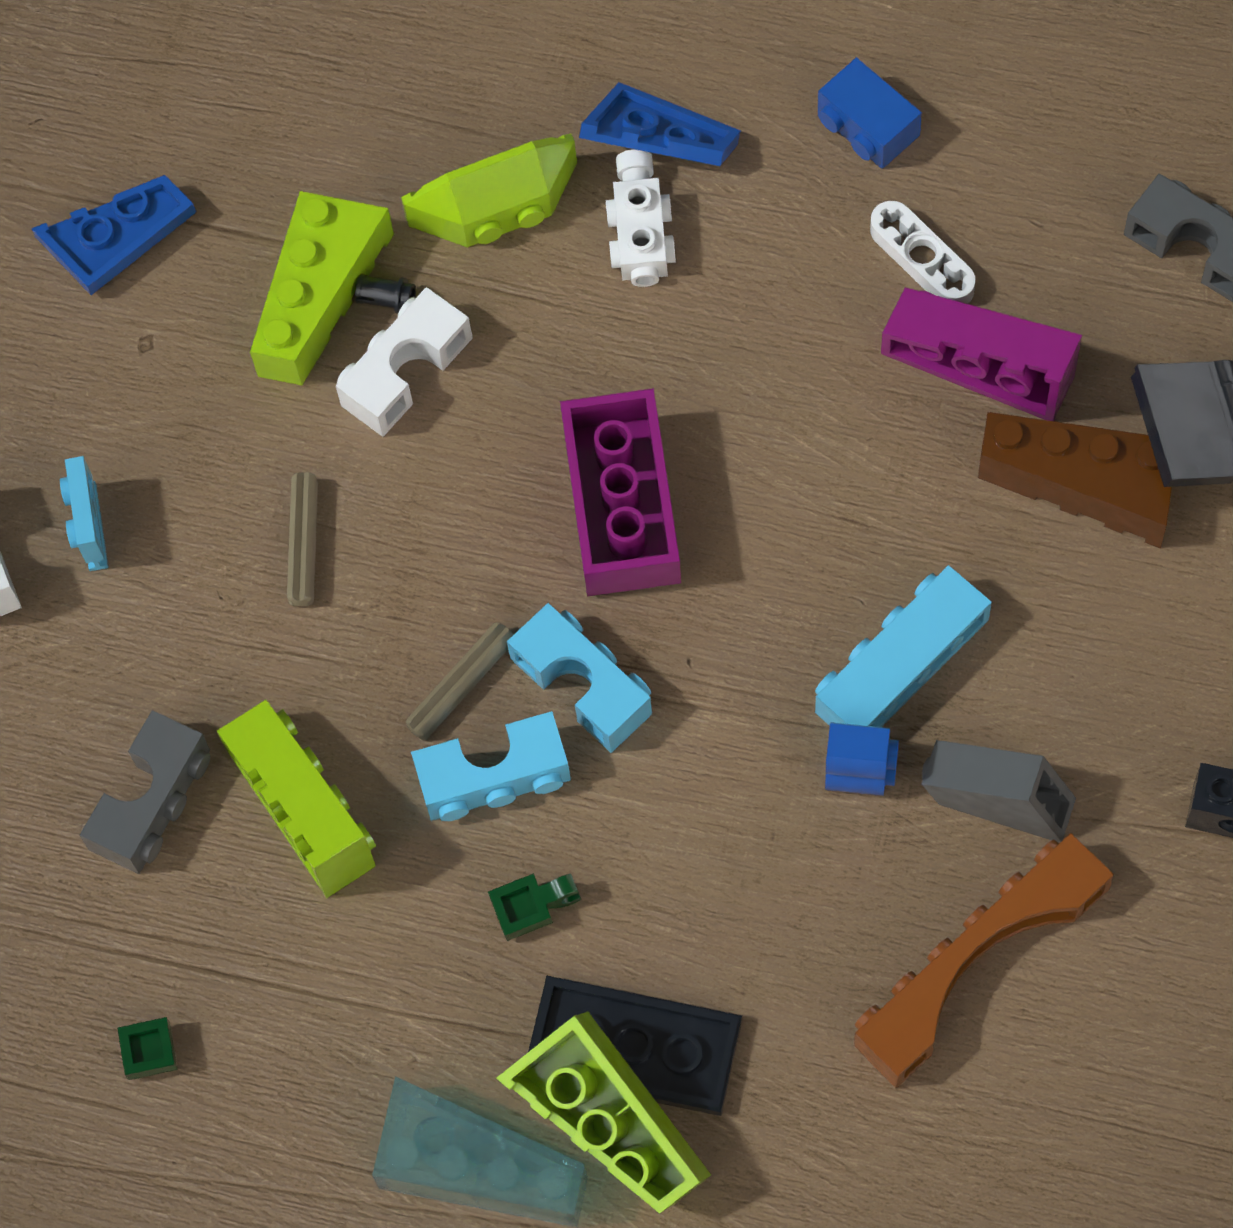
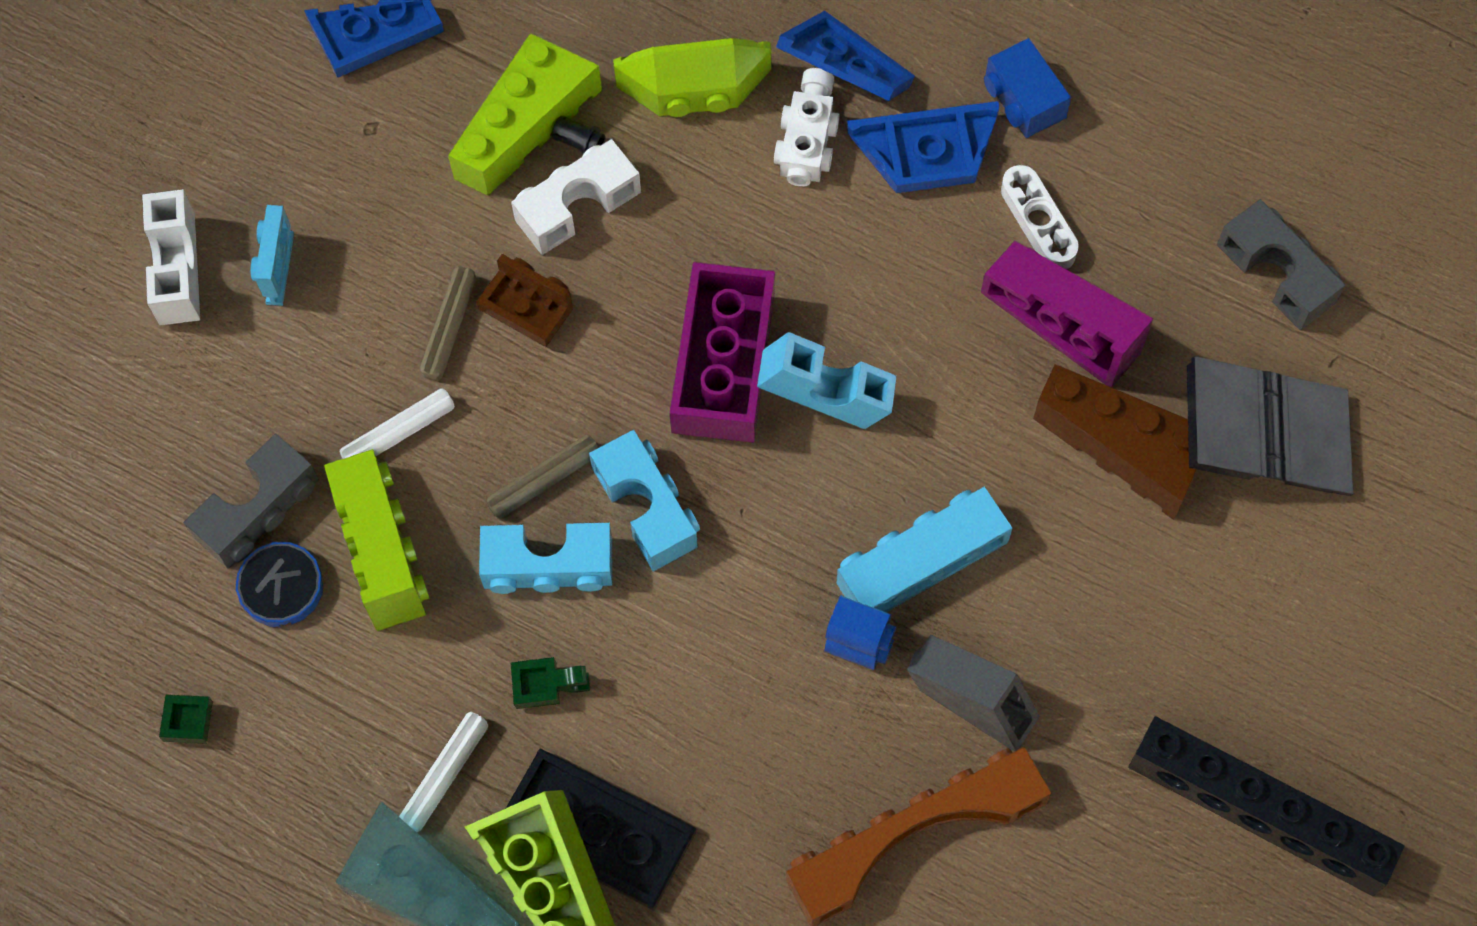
camera: 10 degrees right, 0 degrees up
(203, 875) = (279, 584): none -> black tile
(285, 665) = (401, 425): none -> white axle
(383, 491) = (526, 300): none -> reddish brown bracket
(449, 1026) = (444, 771): none -> white axle
(710, 493) = (796, 371): none -> medium azure arch
(776, 206) = (927, 146): none -> blue wing

